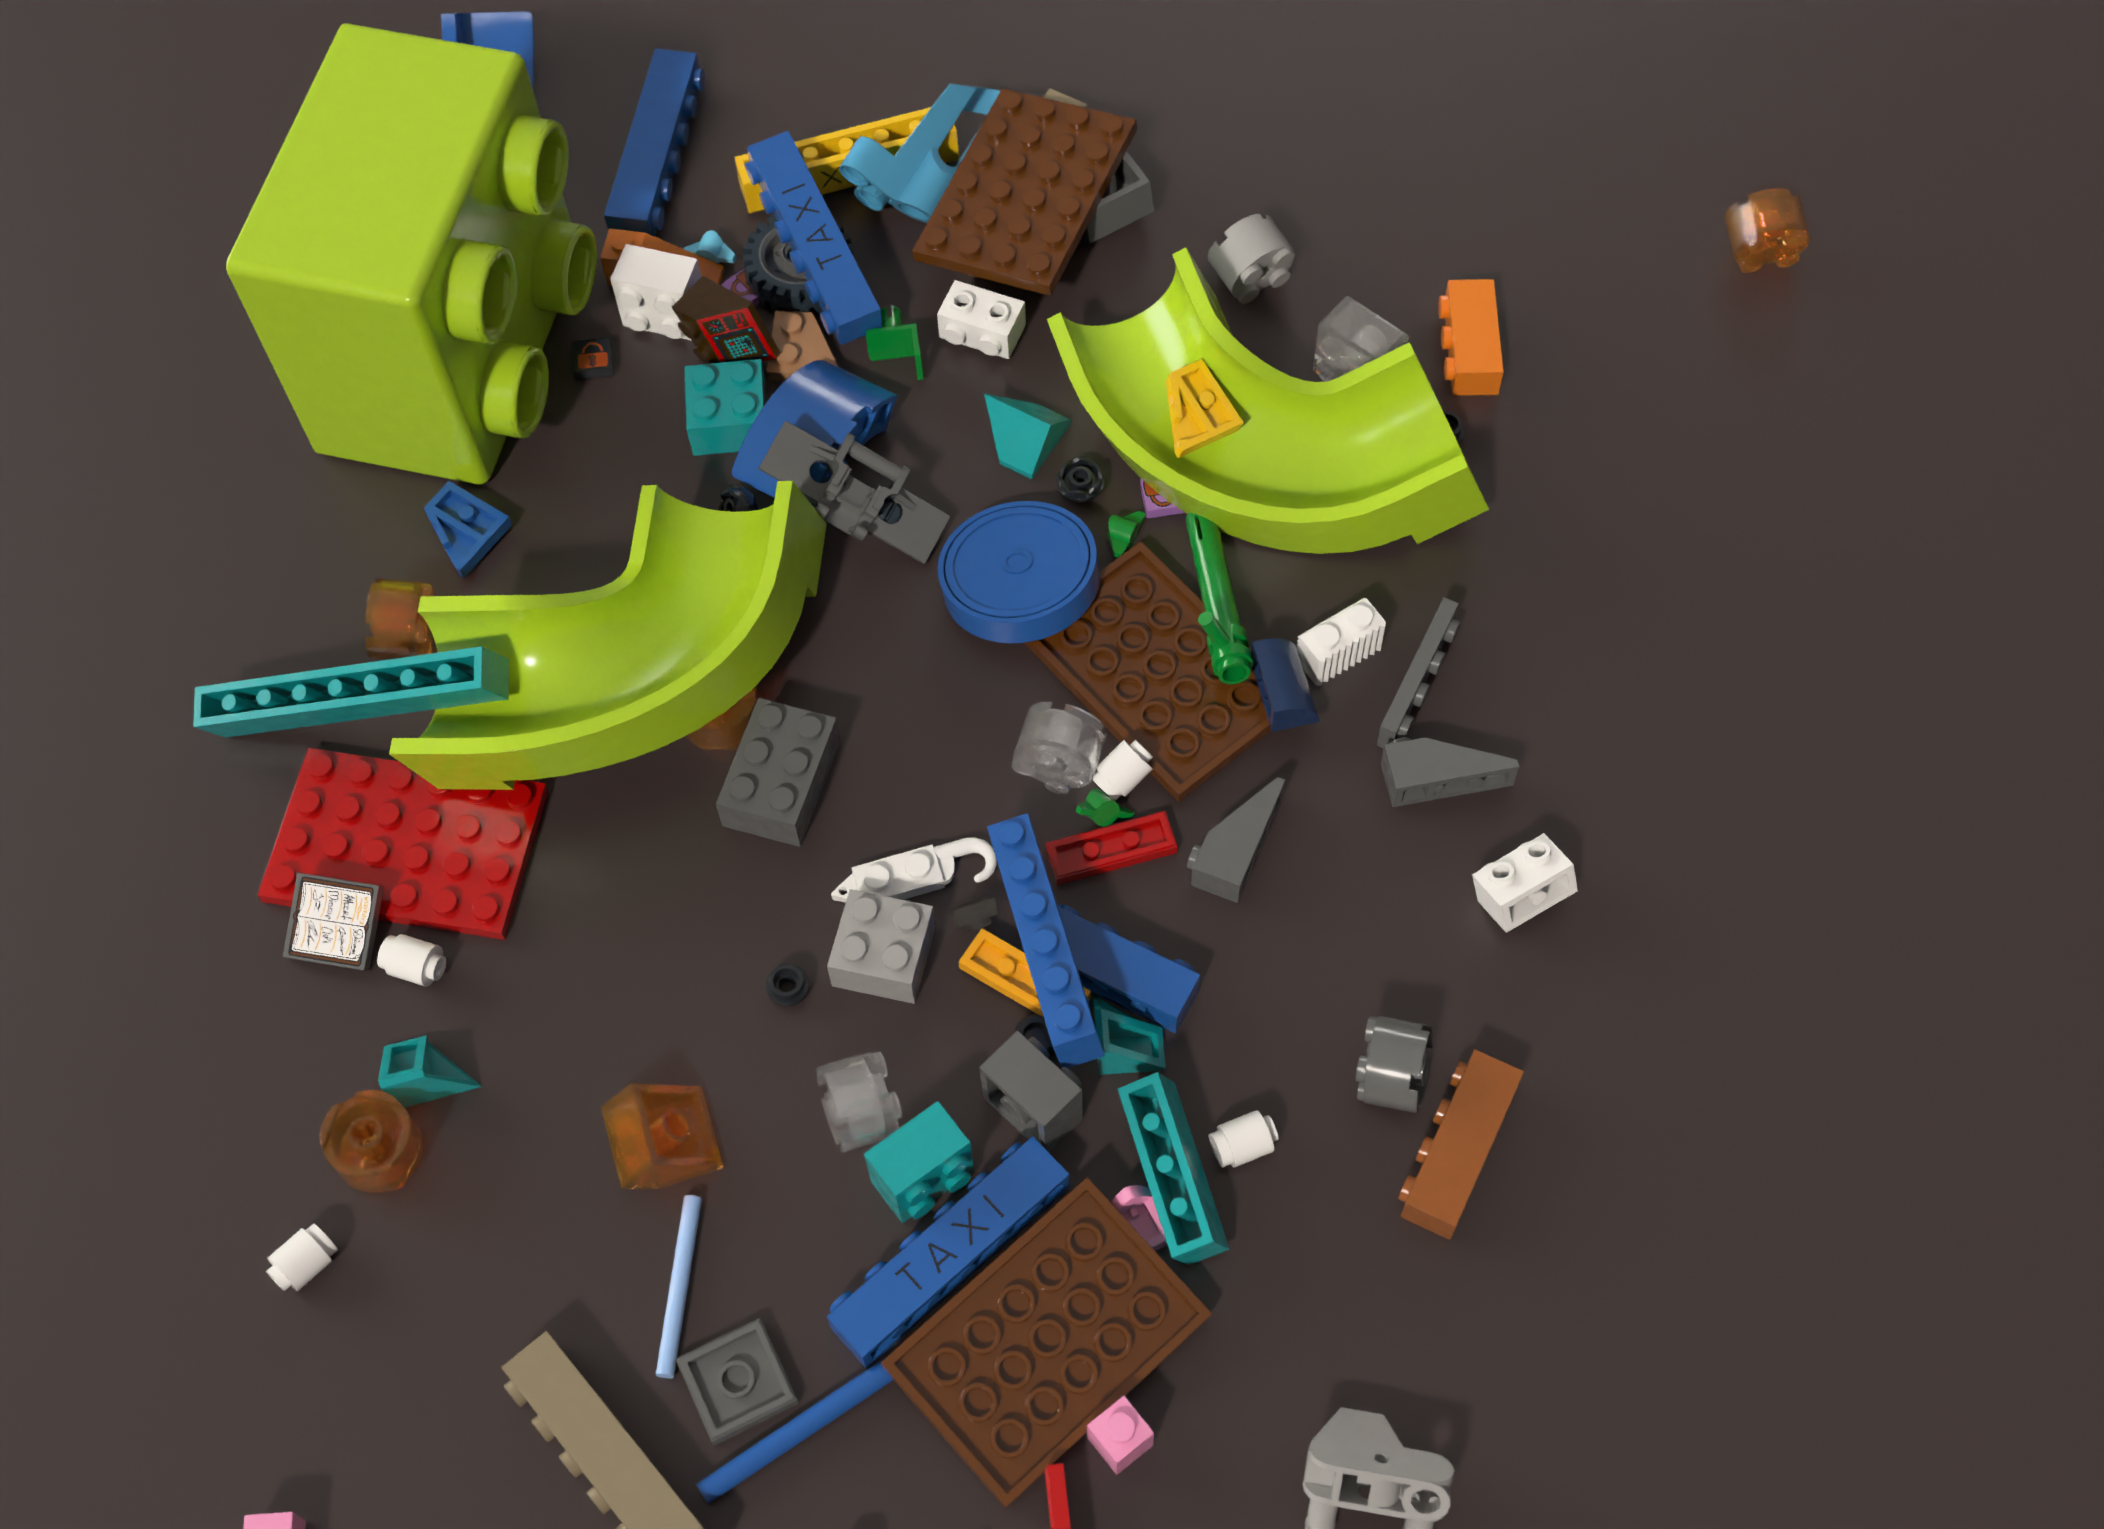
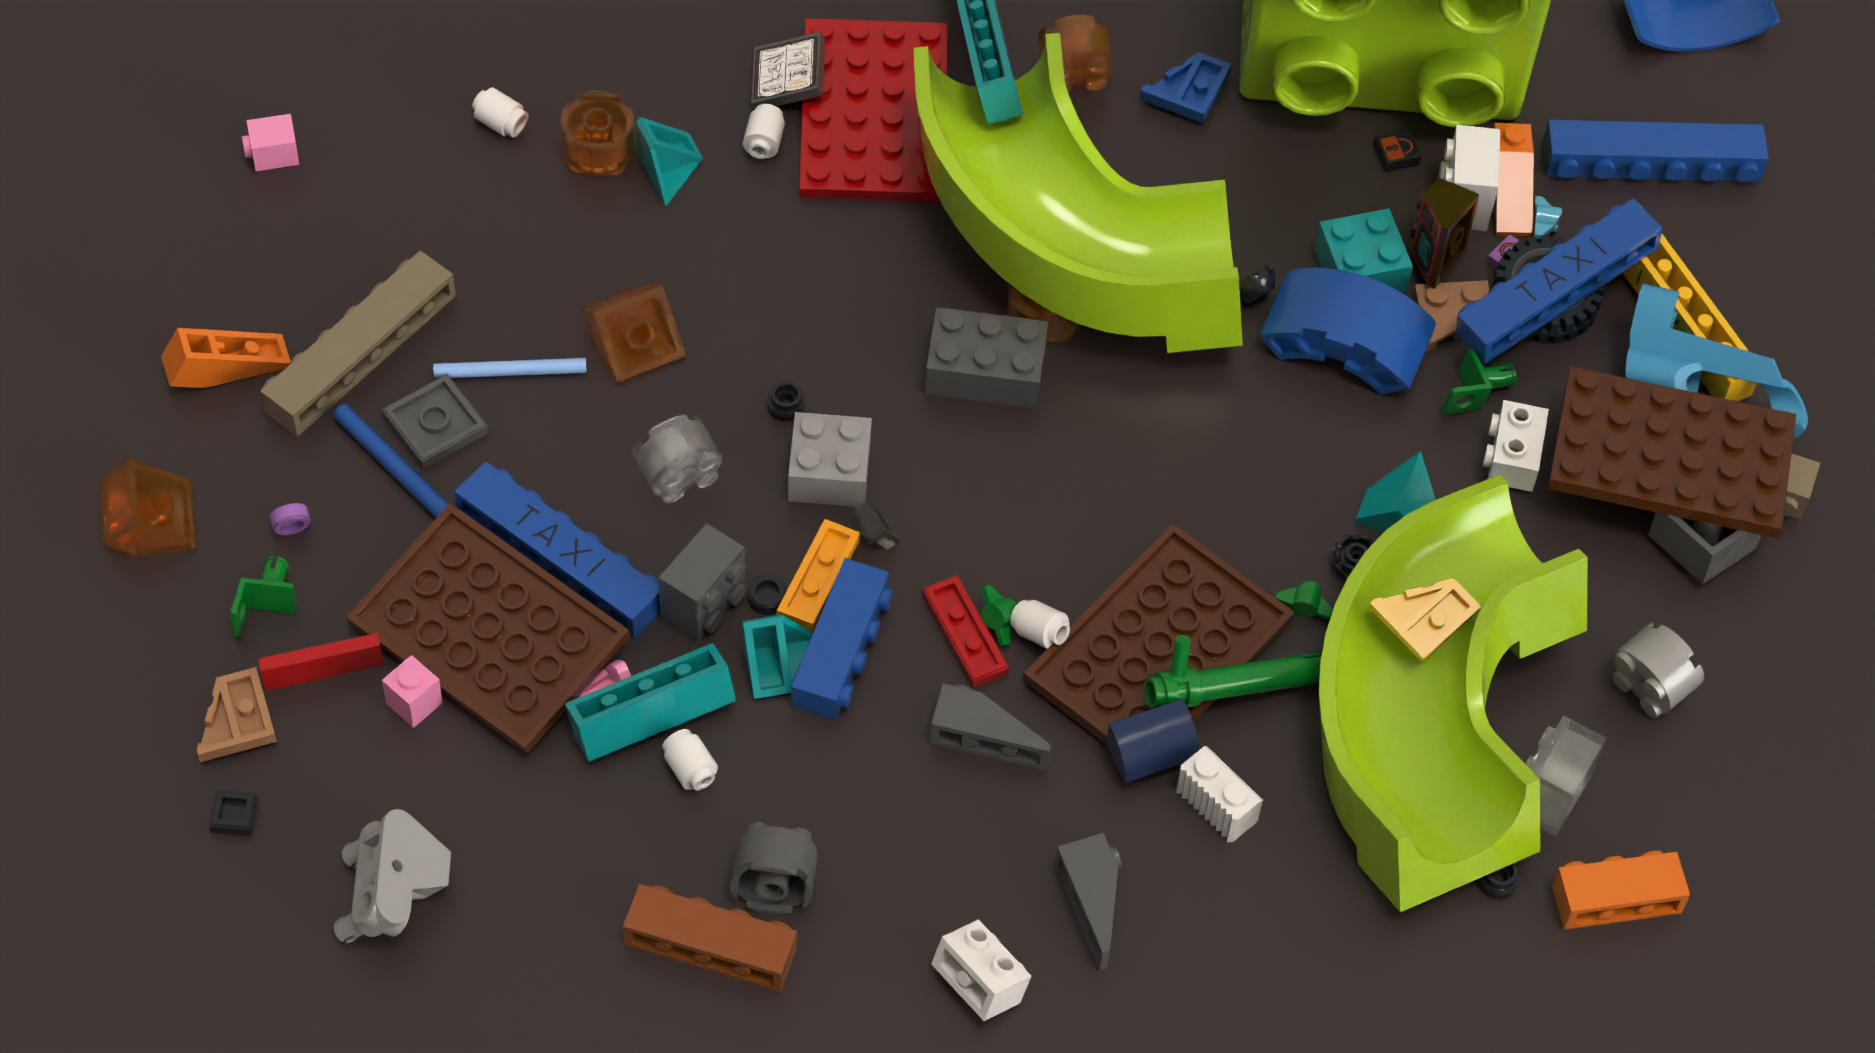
camera: 75 degrees right, 5 degrees down
(850, 504) = (1268, 361): dark grey piece -> none
(916, 870) = (911, 479): white plate -> none
(920, 1163) = (627, 508): teal brick -> none
(1019, 572) = (1233, 512): blue brick -> none
(1045, 942) = (838, 562): blue brick -> none
(1059, 746) = (1047, 564): clear brick -> none
(1426, 661) = (1198, 866): dark grey plate -> none

